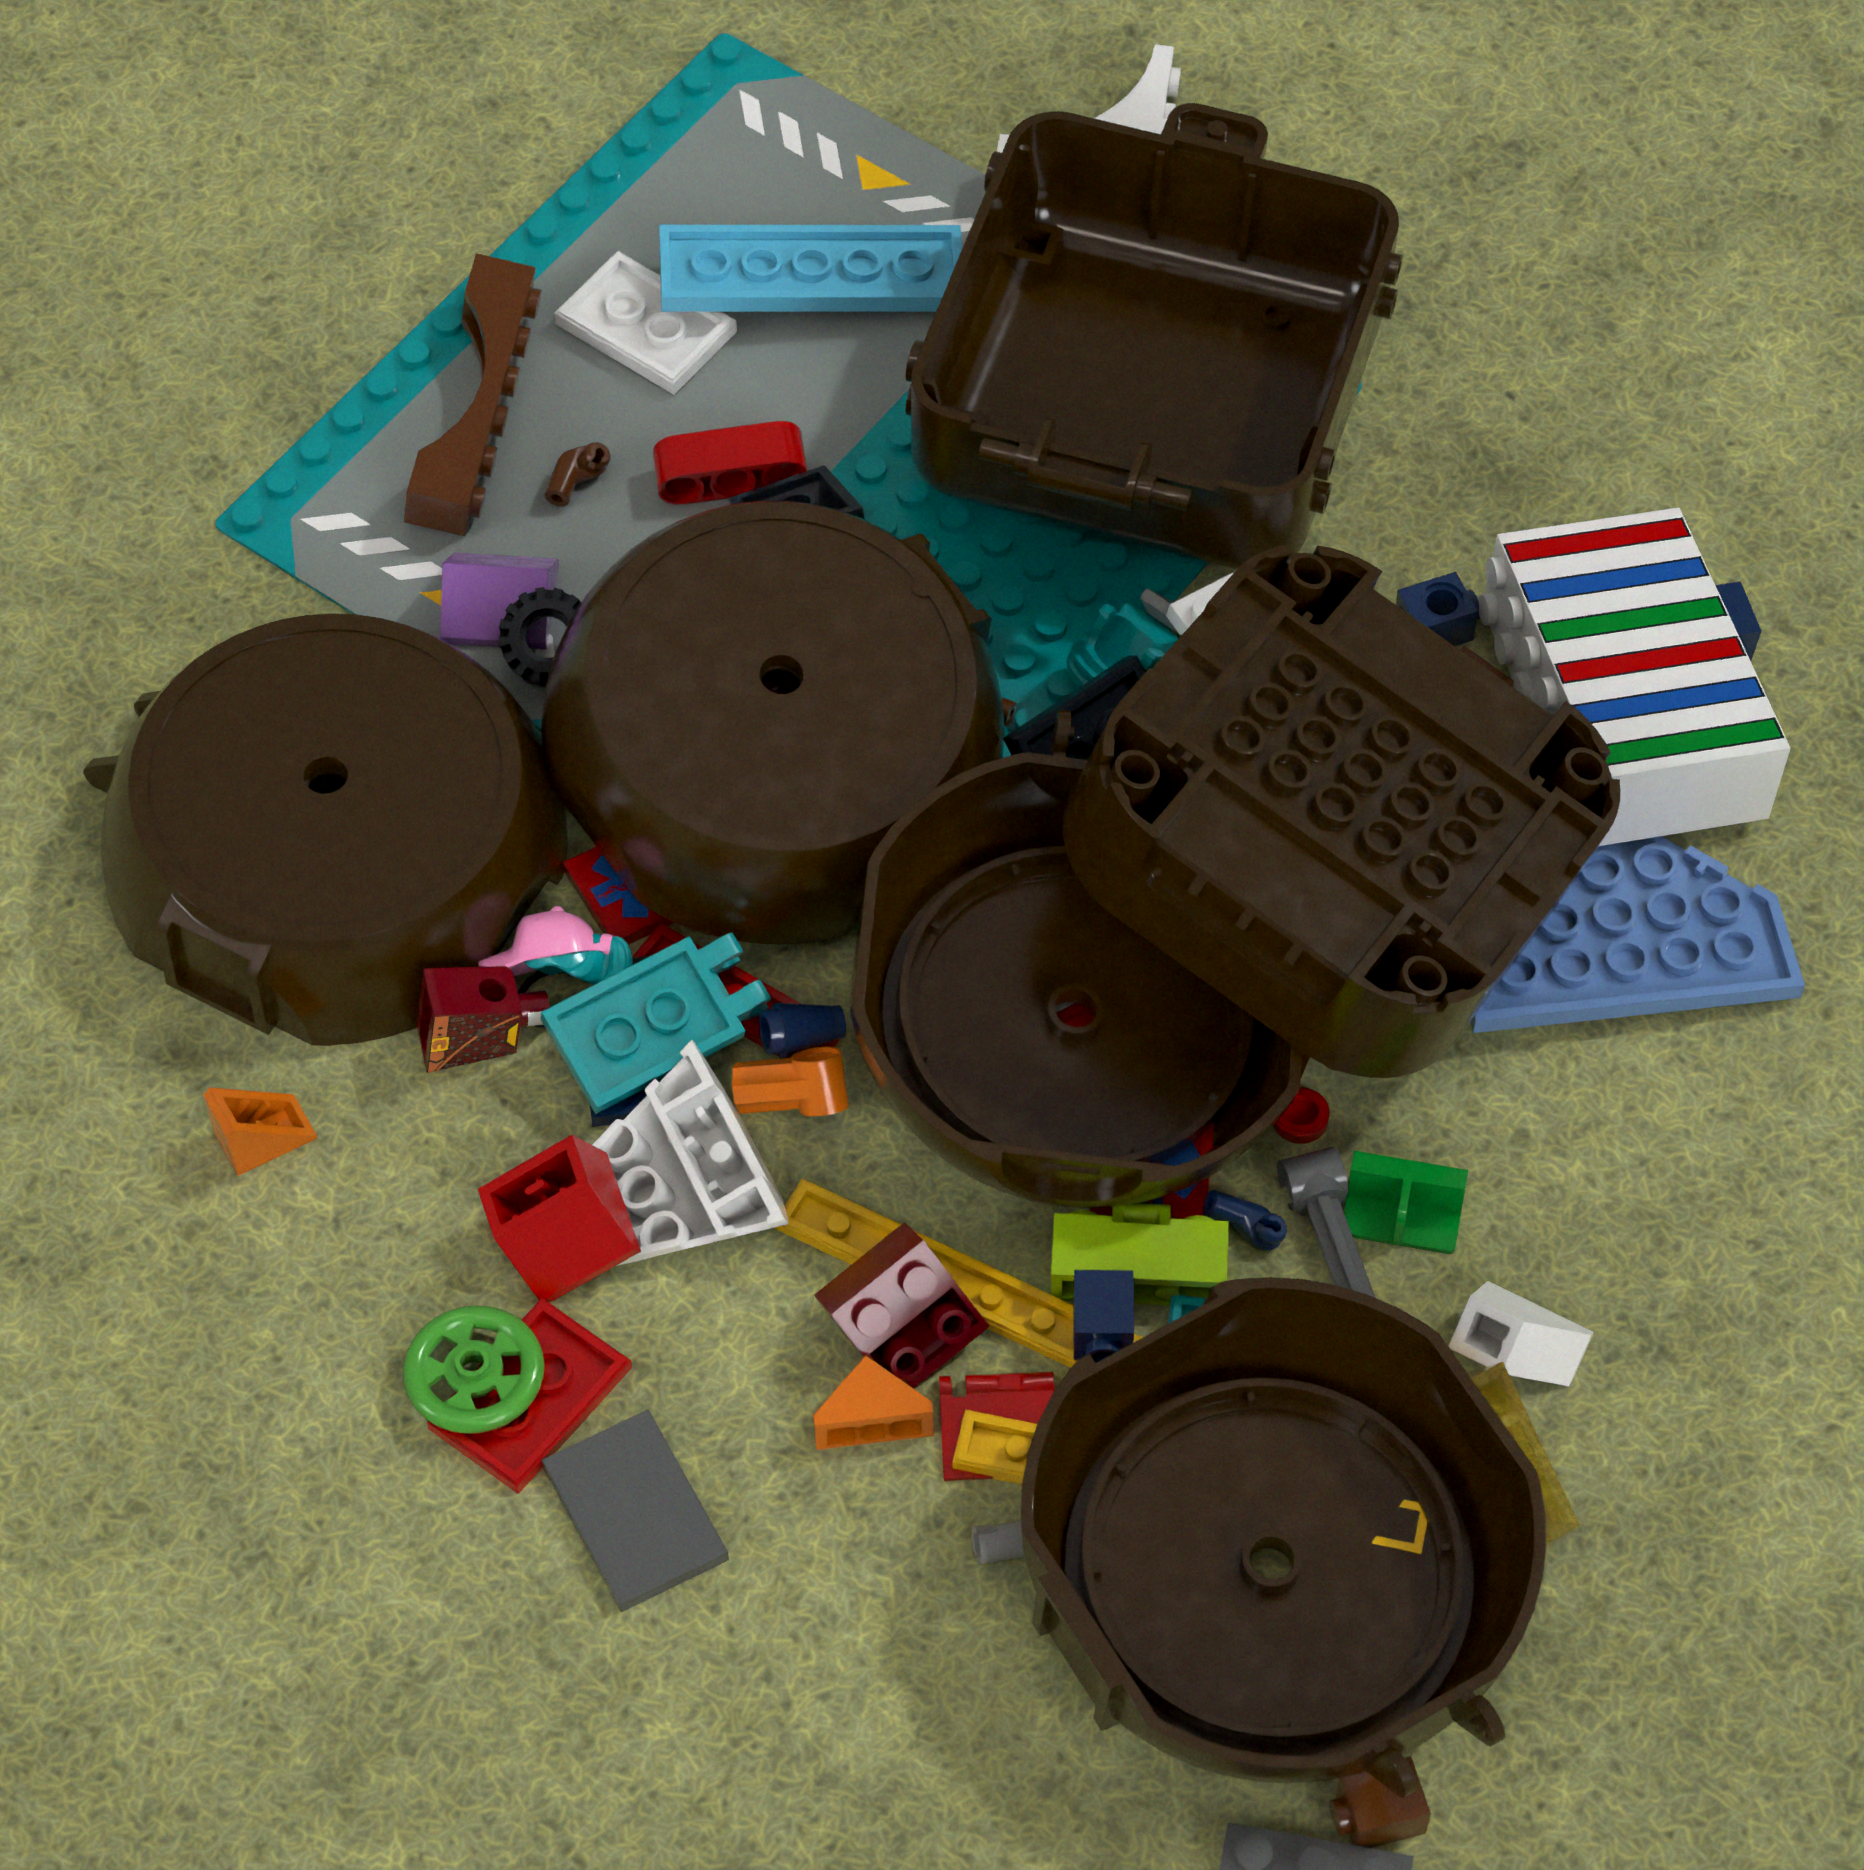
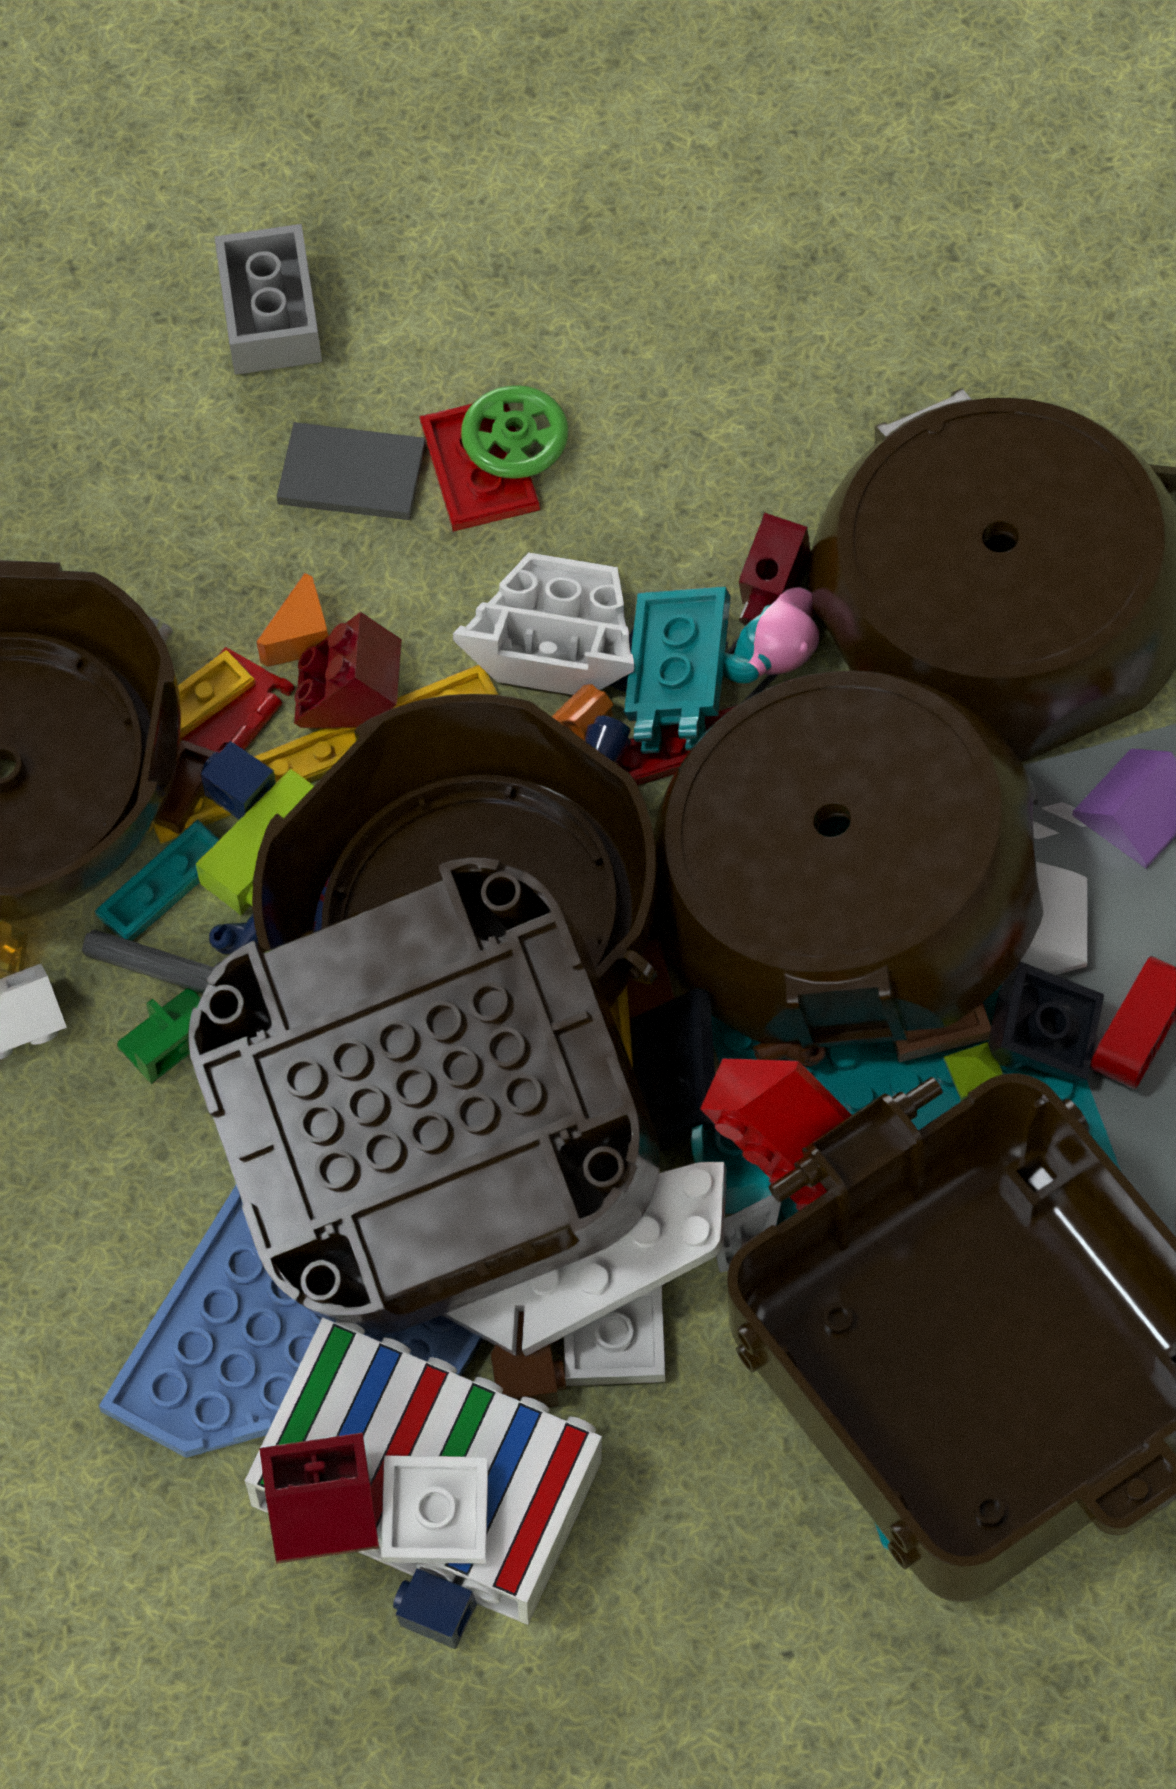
camera: 130 degrees right, 5 degrees up
(256, 1125) = (797, 414): orange slope -> none
(484, 1730) = (268, 299): none -> light grey brick
(517, 623) = (1076, 804): black tyre -> none
(560, 1217) = (576, 528): red slope -> none
(1100, 554) = (772, 1114): none -> red slope
(1442, 607) = (619, 1395): dark blue brick -> none
(1680, 590) = (434, 1509): none -> white plate
(1752, 666) = (319, 1498): none -> dark red slope

